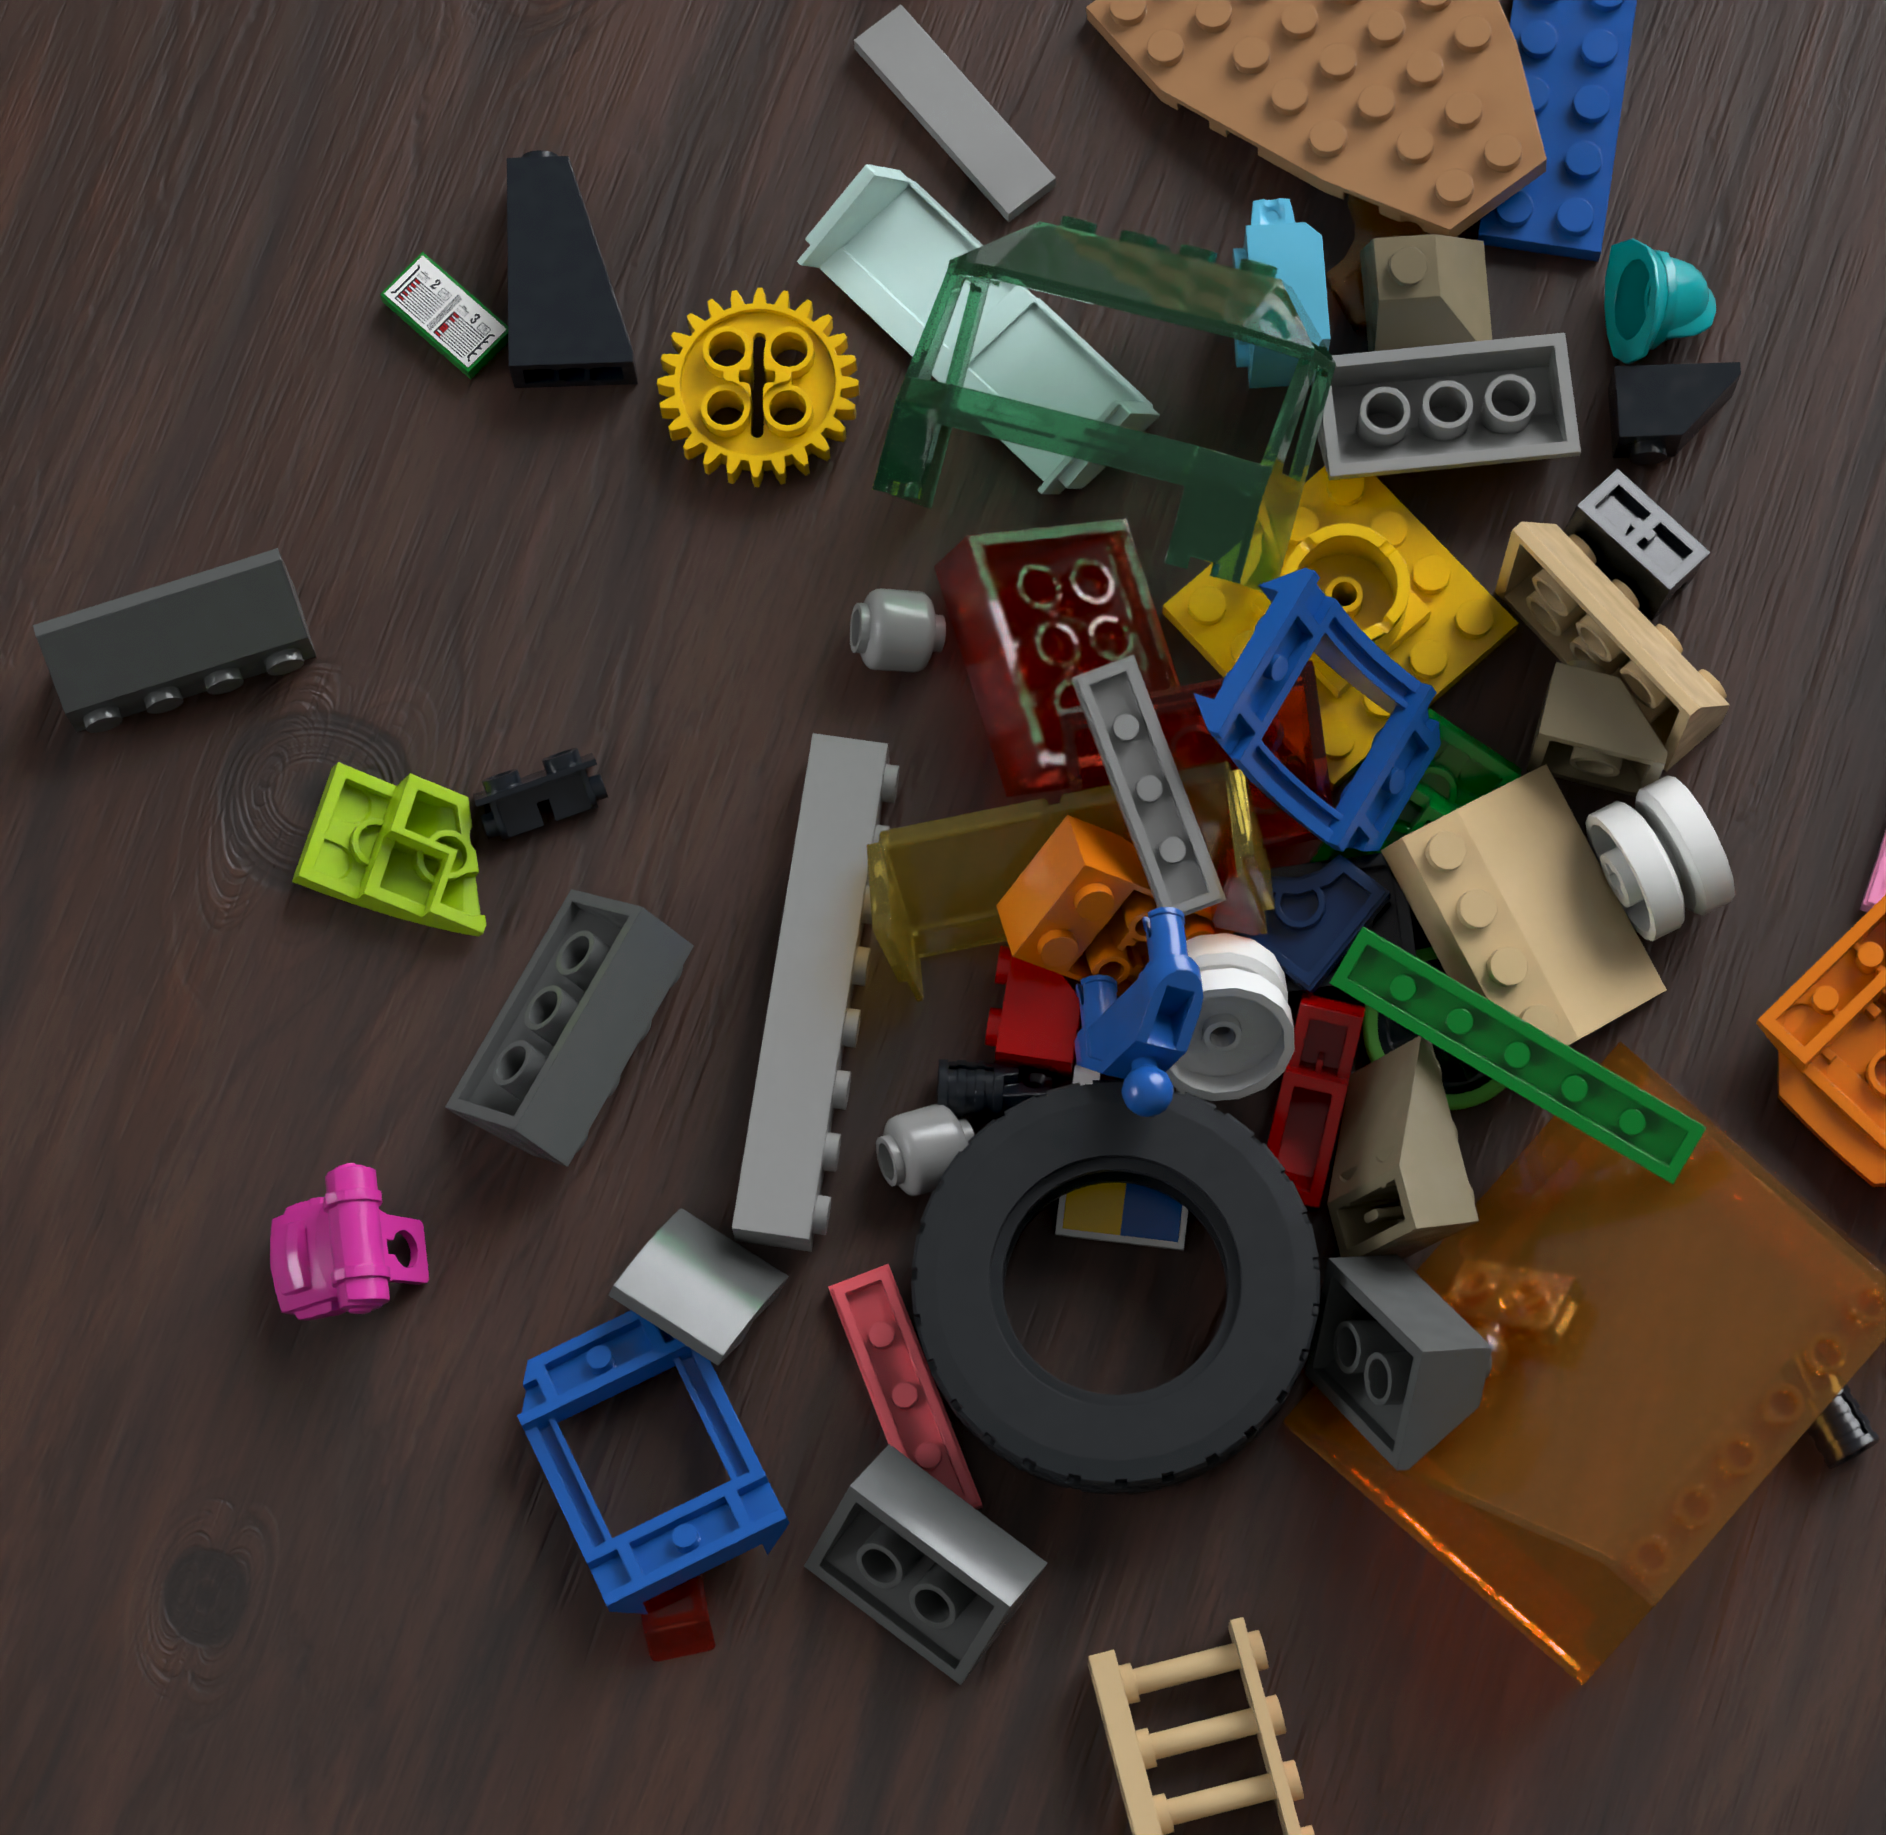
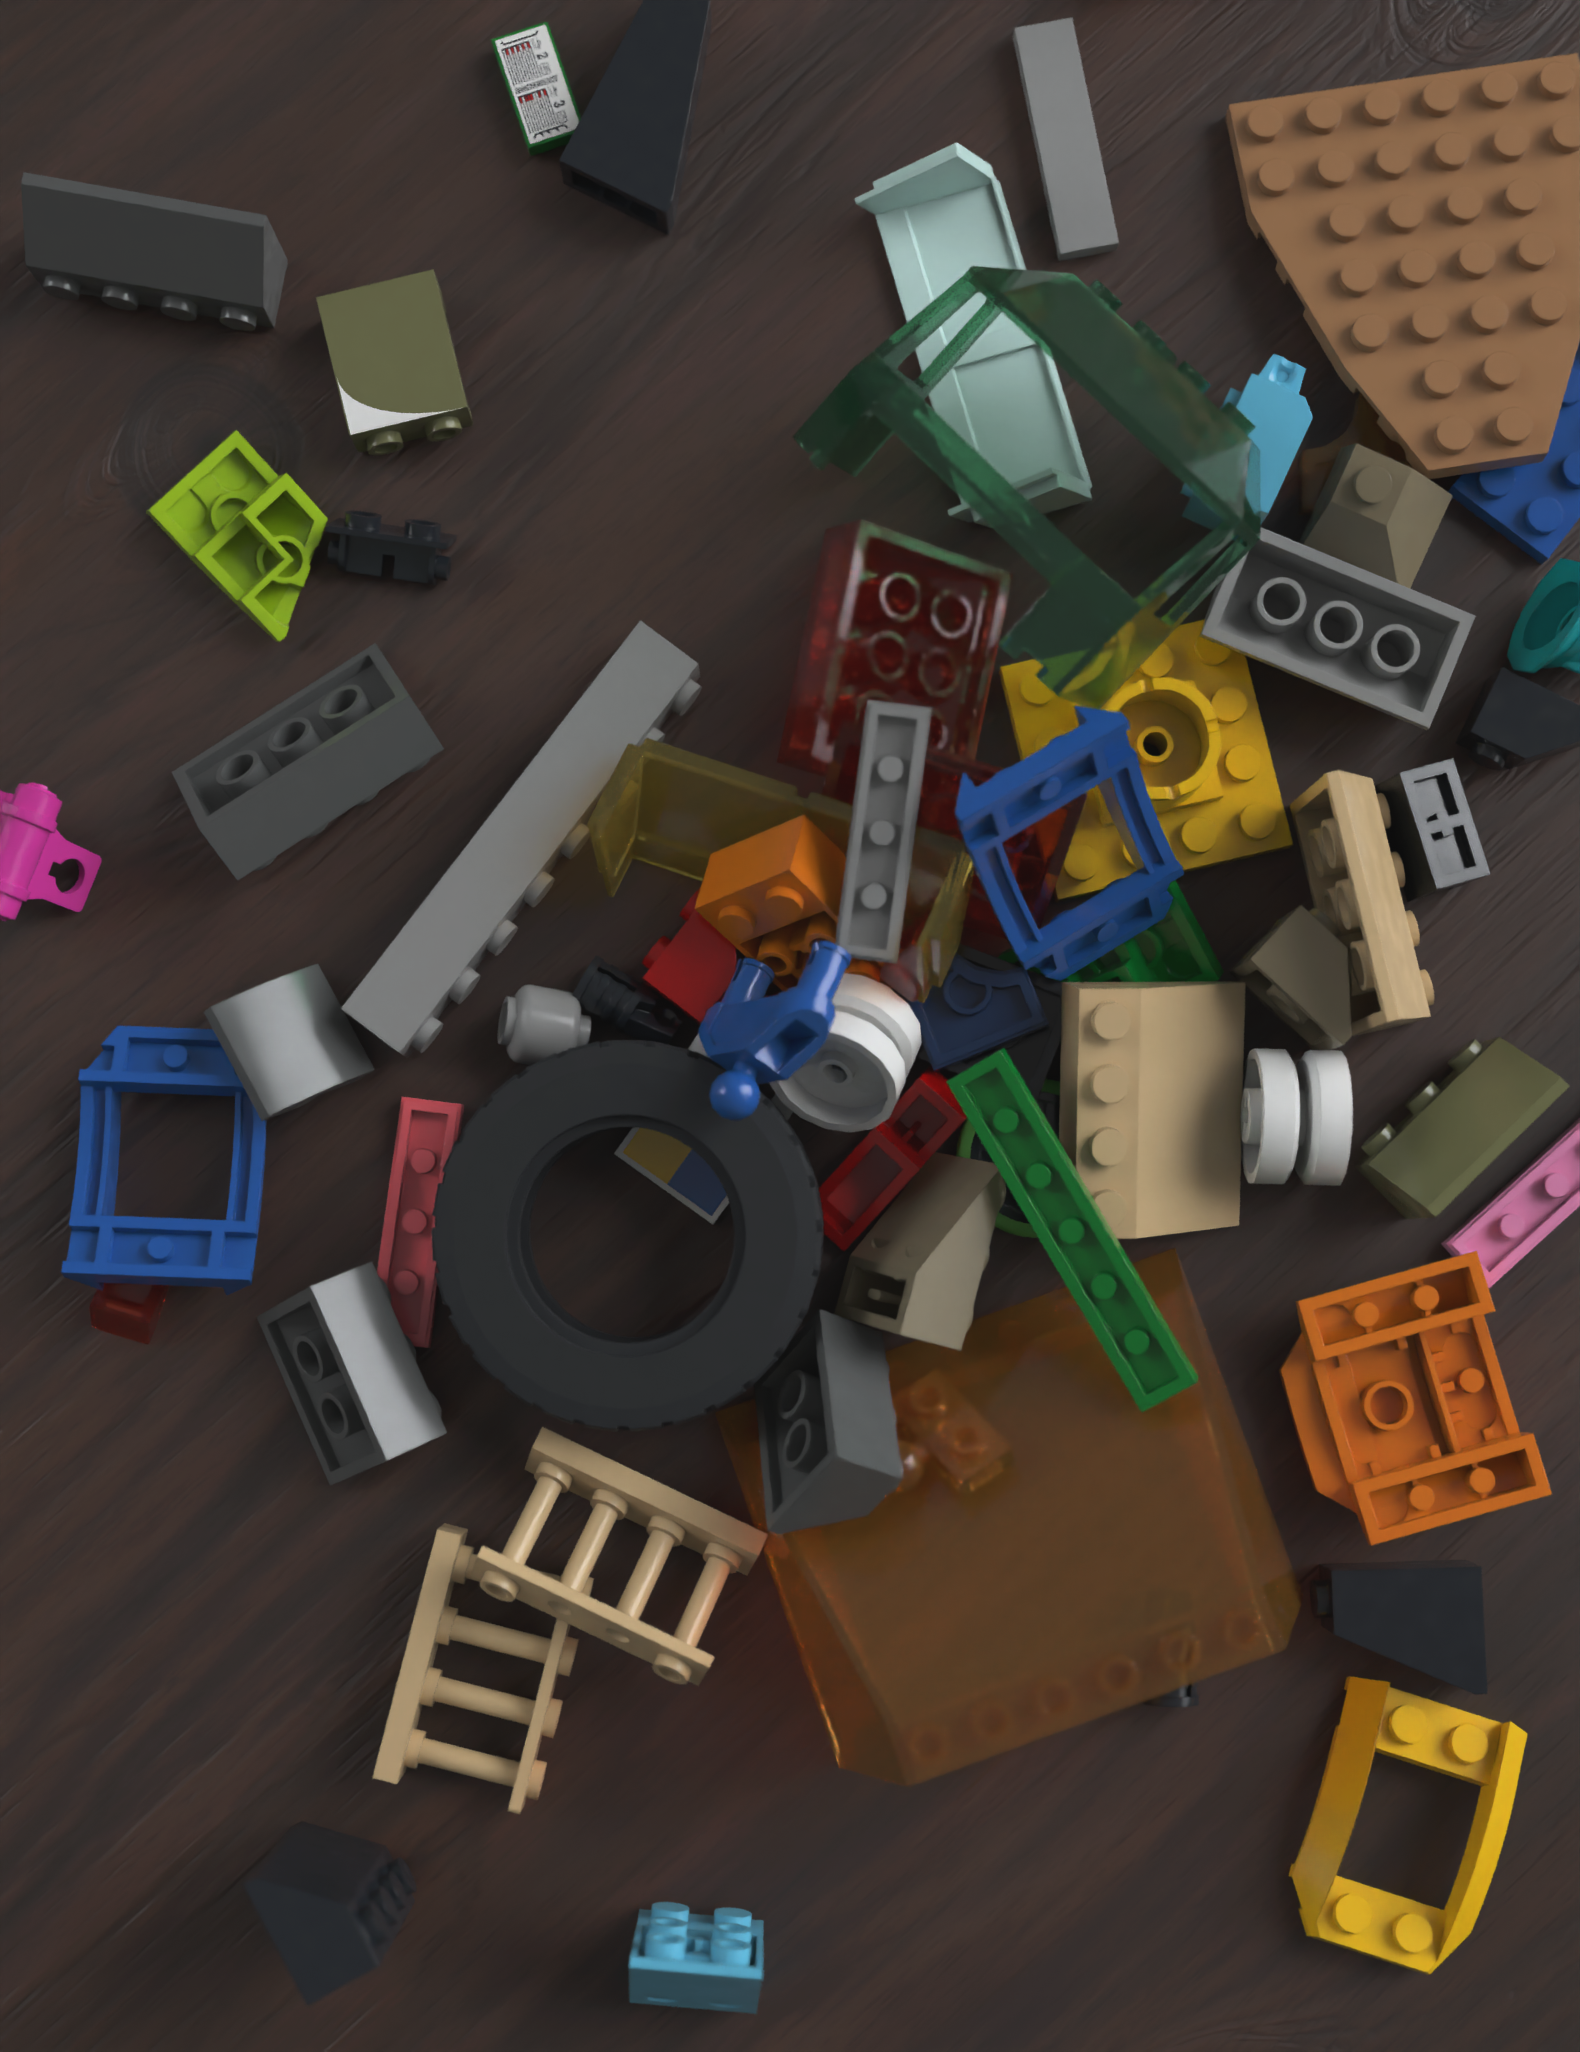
camera: 20 degrees right, 10 degrees up
(454, 624) = (394, 363): none -> olive panel
(814, 386) = (718, 269): yellow gear -> none
(896, 630) = (764, 568): light grey head -> none
(1271, 1533) = (669, 1520): none -> tan fence
(1809, 791) = (1458, 1126): none -> olive slope

